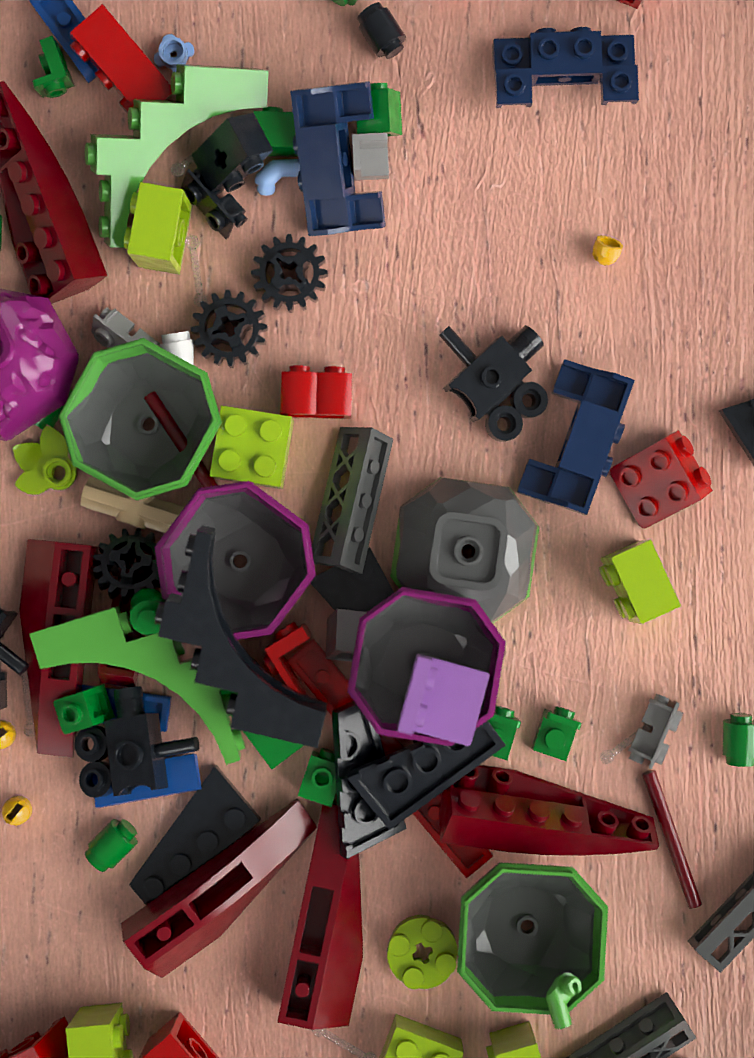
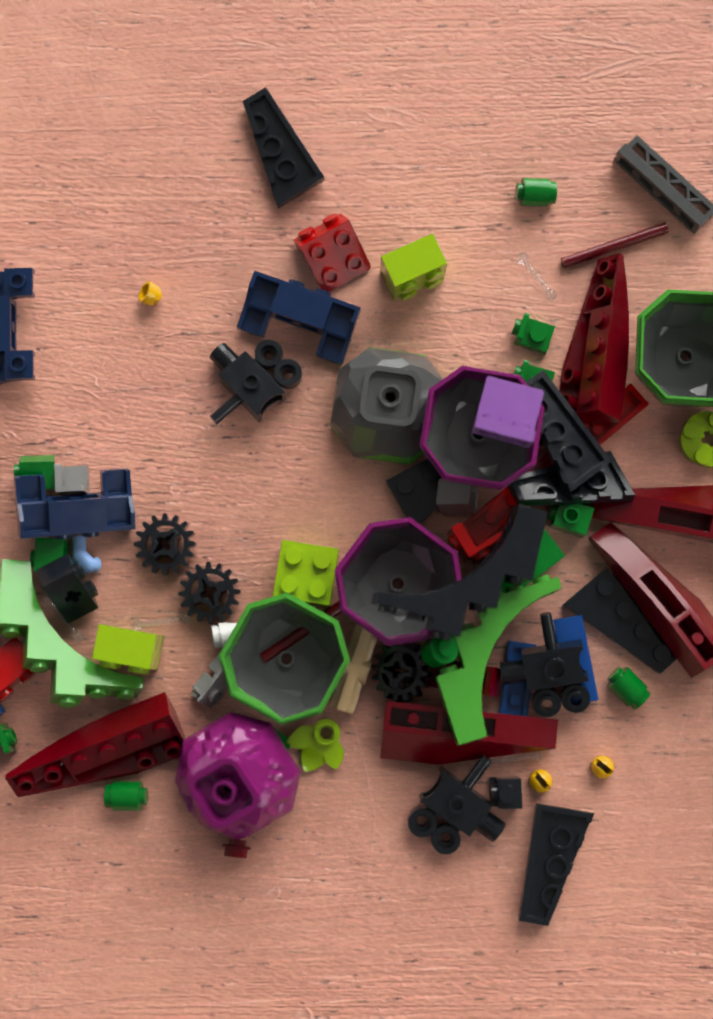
camera: 90 degrees left, 5 degrees down
(84, 709) = (519, 708): green bracket -> none
(219, 213) = (115, 599): black hinge -> none
(316, 393) = (263, 522): red brick -> none
(358, 498) = (346, 488): dark grey fence -> none
(651, 745) = (521, 251): light grey hinge -> none

